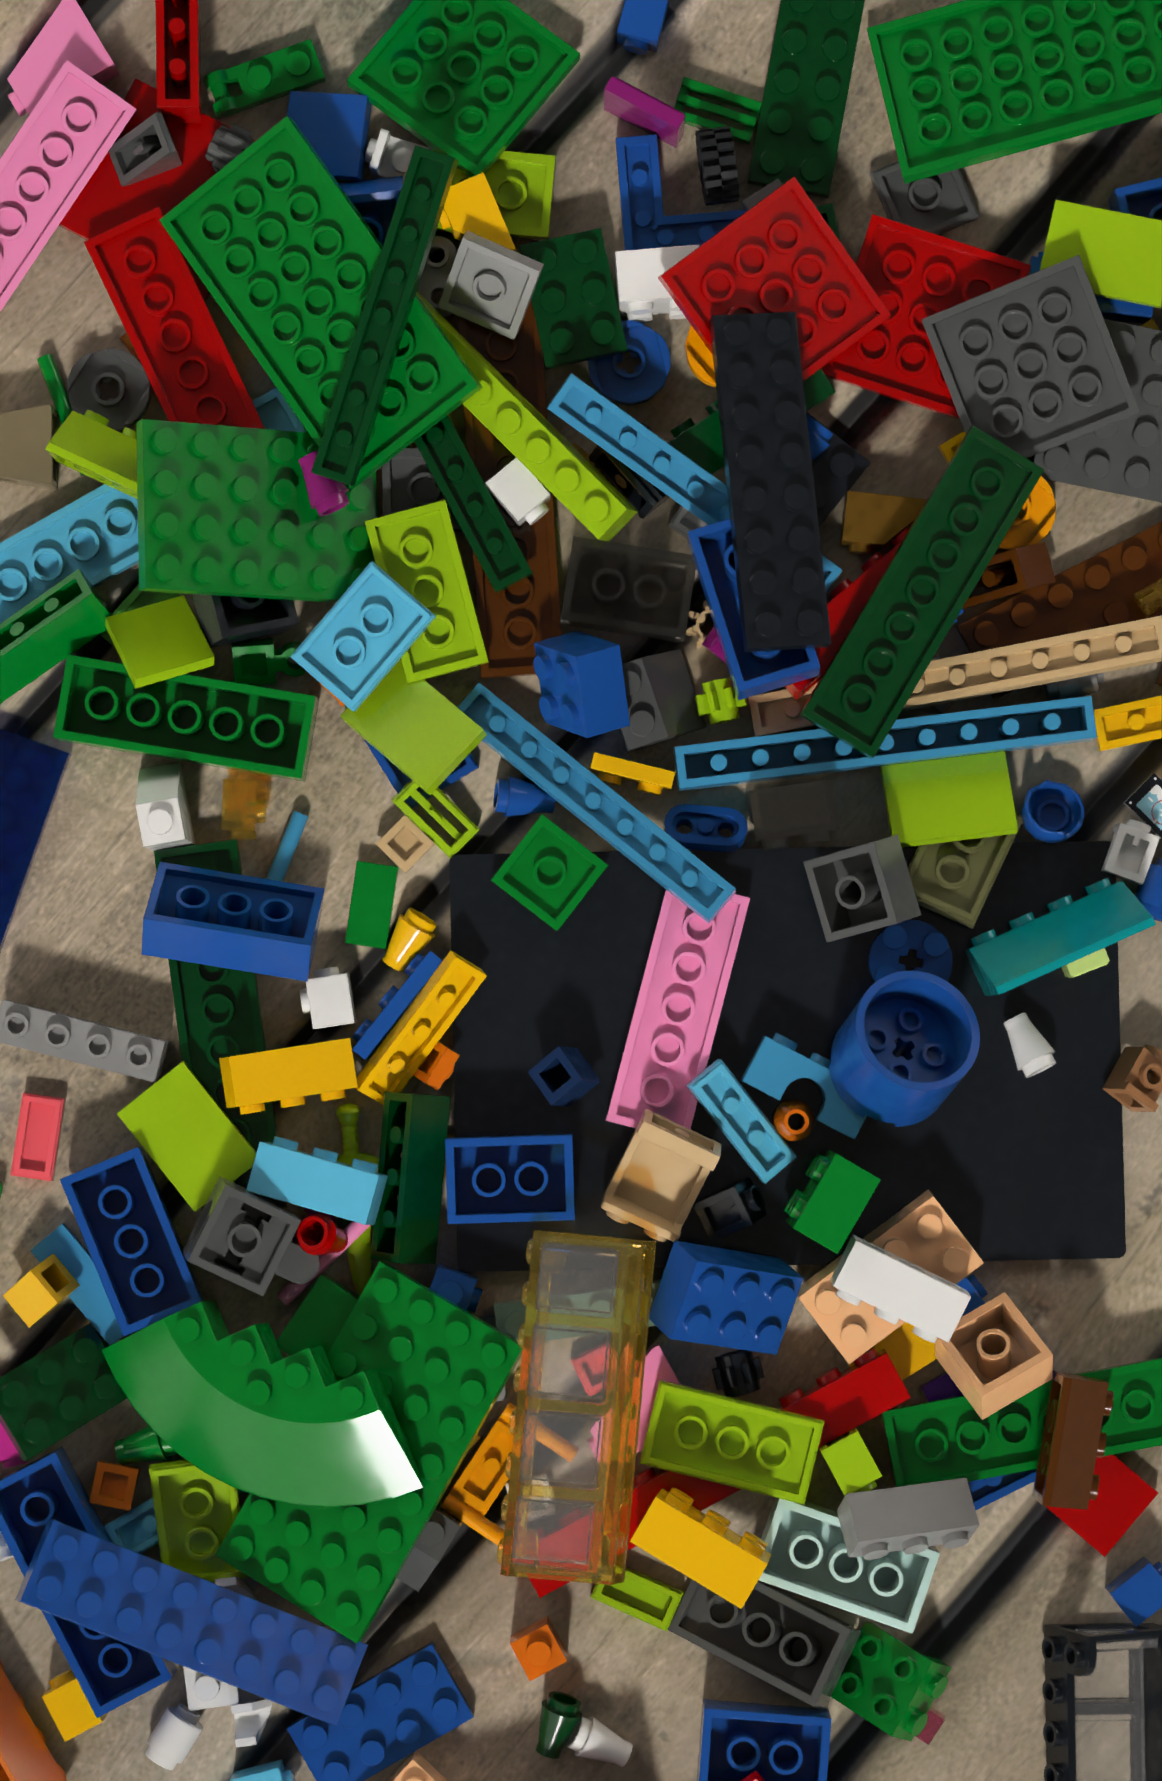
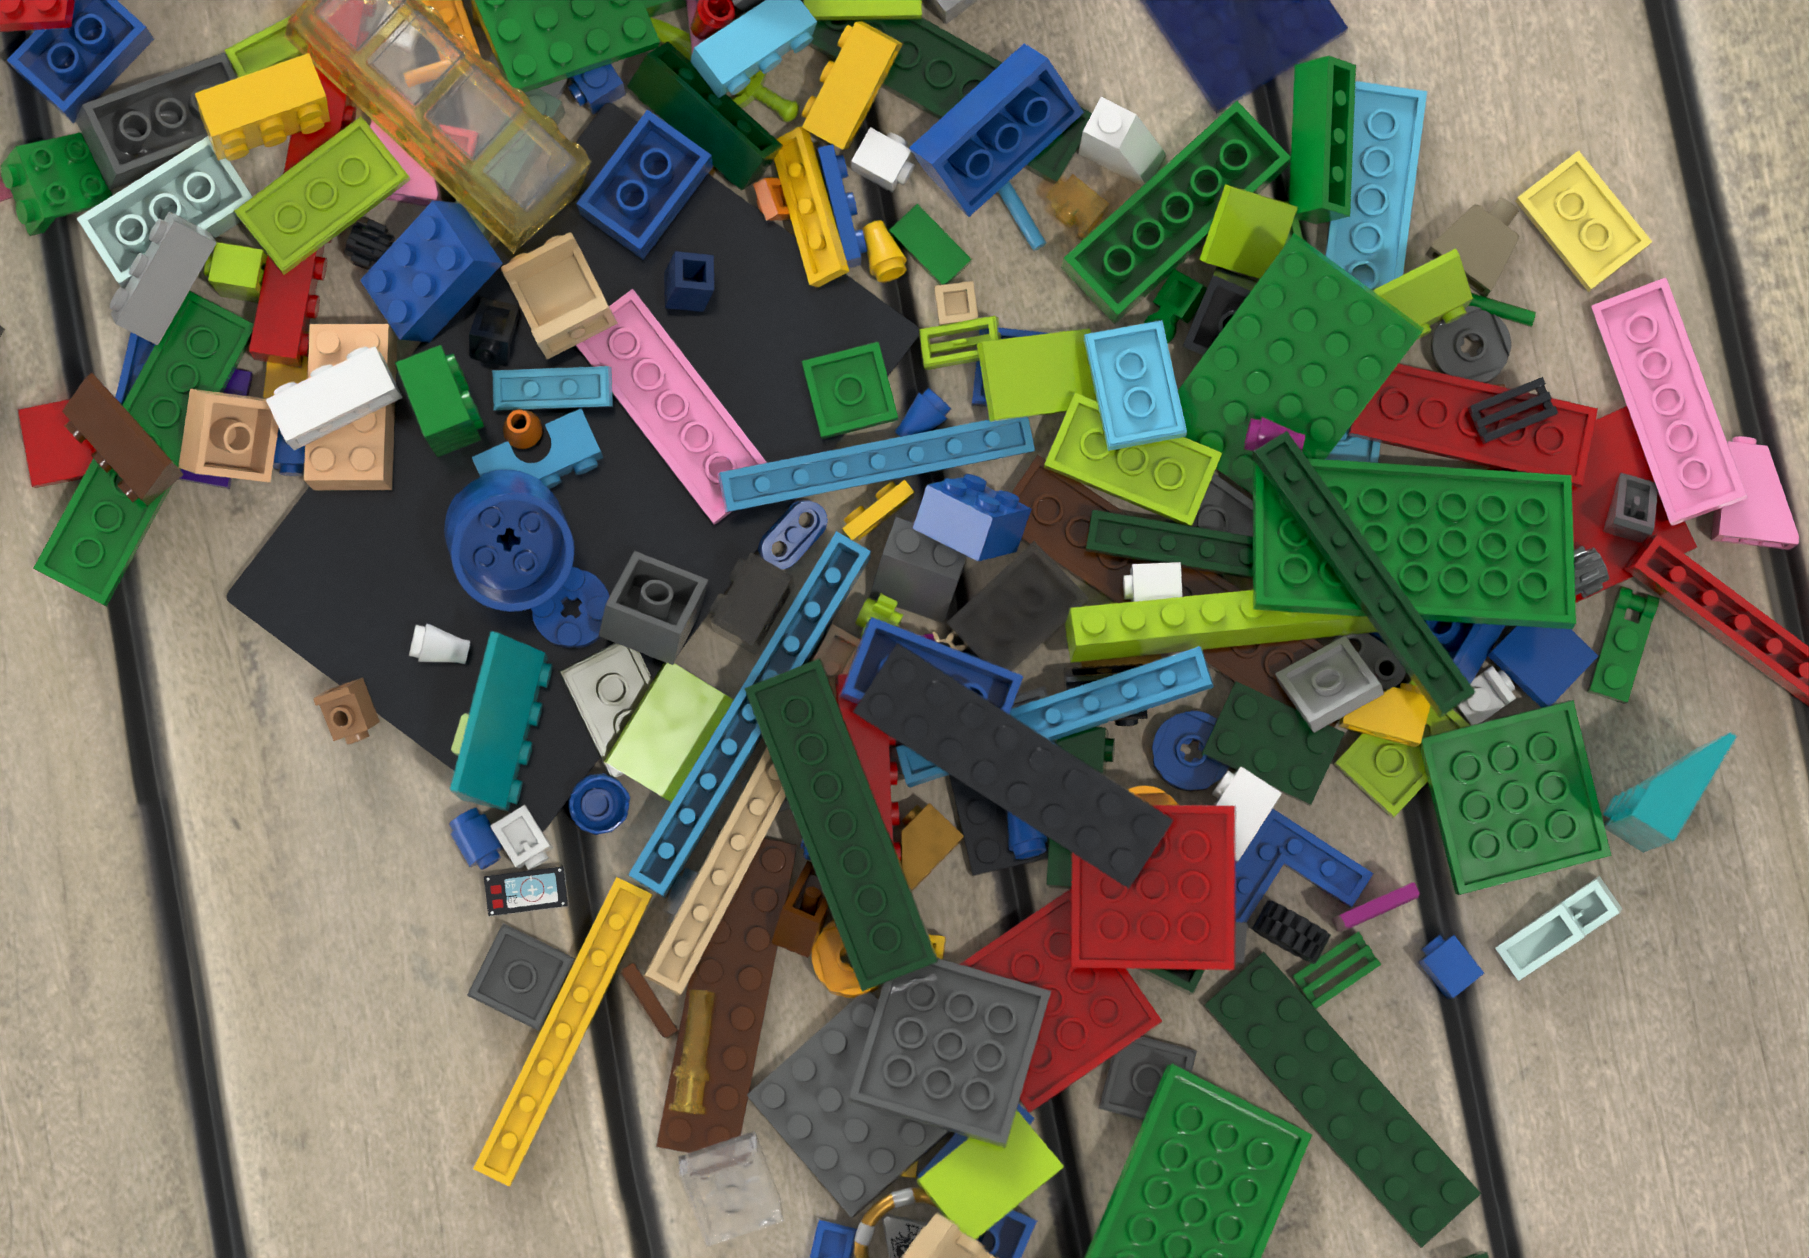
camera: 125 degrees right, 5 degrees down
(111, 290) = (1543, 398): none -> black tile

